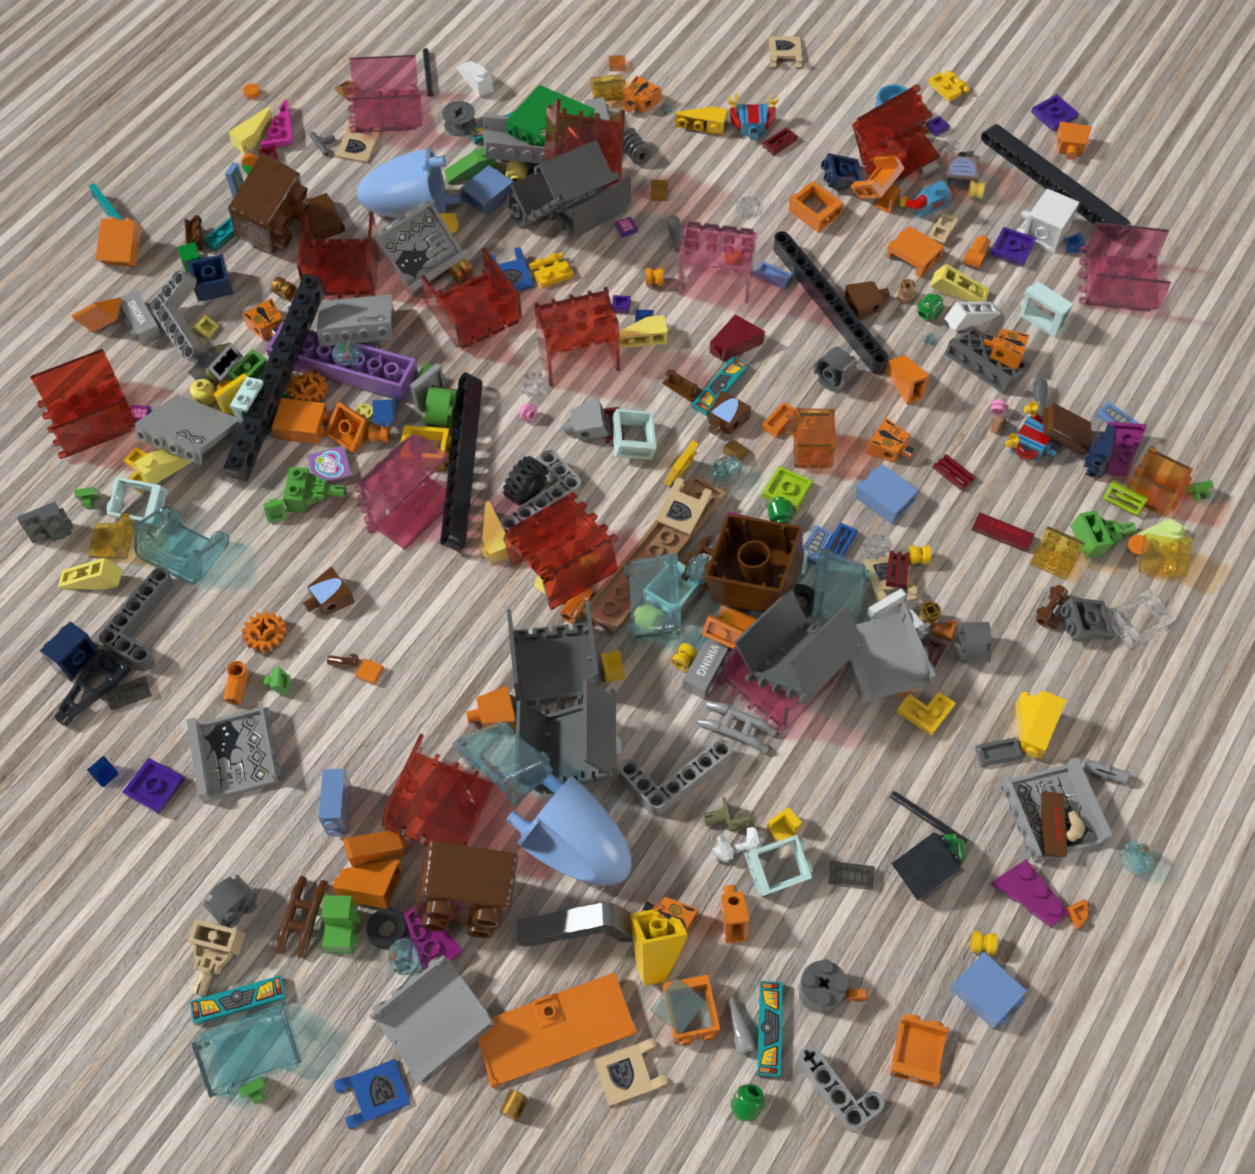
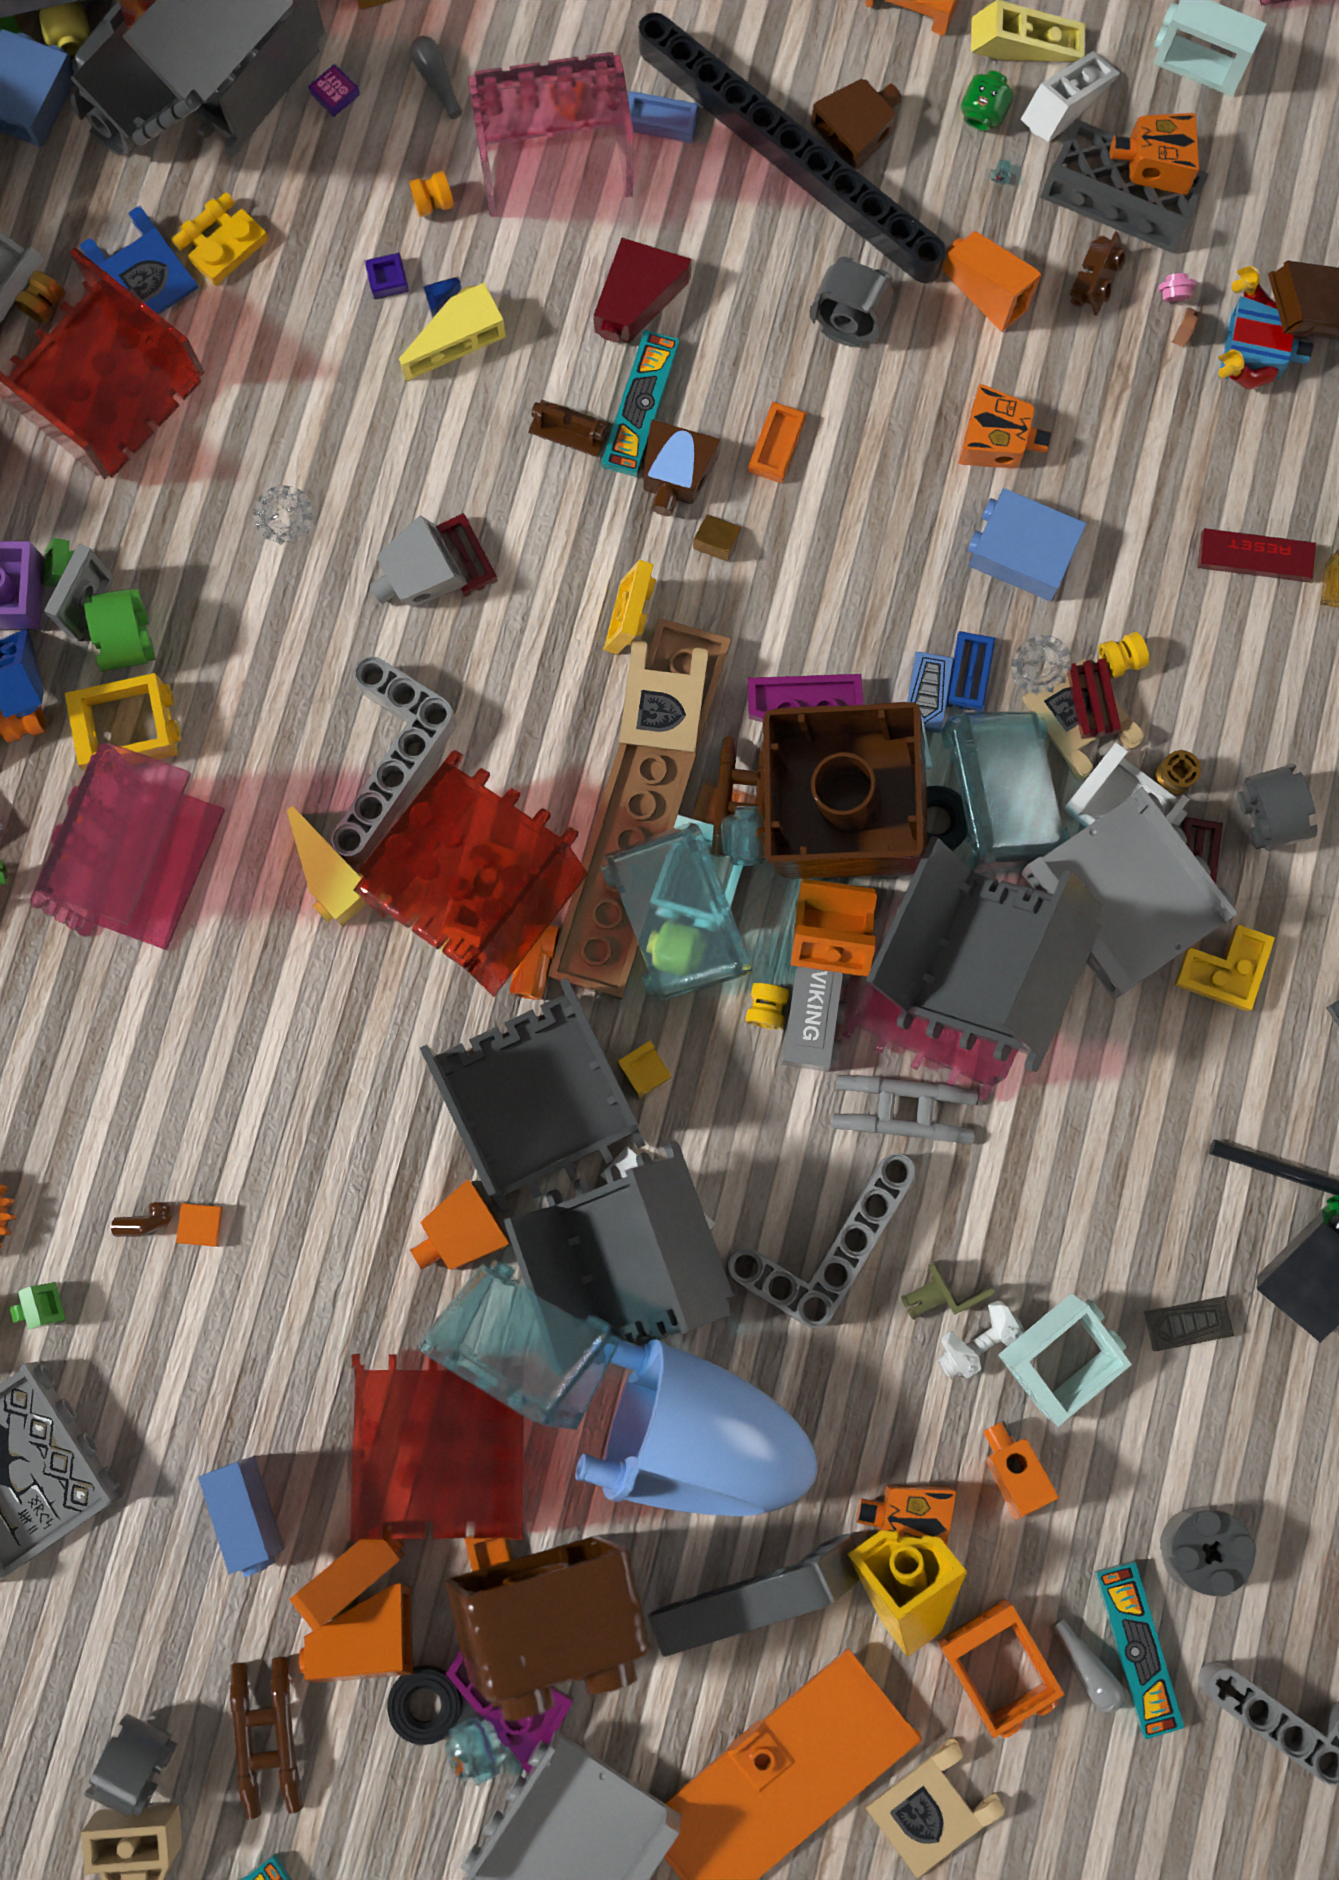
camera: 20 degrees left, 20 degrees up
(328, 593) = (59, 1096): reddish brown torso -> none
(340, 921) = (342, 1737): bright green brick -> none
(461, 463) = (206, 732): black beam -> none
(525, 480) = (347, 743): black tyre -> none
(528, 412) = (293, 581): bright pink plate -> none
(576, 323) = (326, 366): clear red windscreen -> none
(634, 449) = (527, 602): light aqua window -> none
(678, 1005) = (981, 1681): clear light blue piece -> none
(727, 468) = (715, 584): clear light blue head -> none
(747, 1102) = (1148, 1800): green head -> none
(780, 510) = (844, 646): green head -> none
(784, 824) = (1048, 1274): yellow panel -> none
(787, 485) = (838, 589): lime tile -> none
(812, 437) = (858, 470): clear orange container -> none
(857, 995) = (1269, 1541): orange tile -> none
(906, 291) = (930, 77): medium nougat wheel -> none
(945, 630) = (1211, 792): orange tile -> none
(956, 470) = (1136, 450): dark red tile -> none
(963, 391) = (1105, 259): none -> reddish brown hinge
(1040, 392) = (1244, 234): dark grey piece -> none

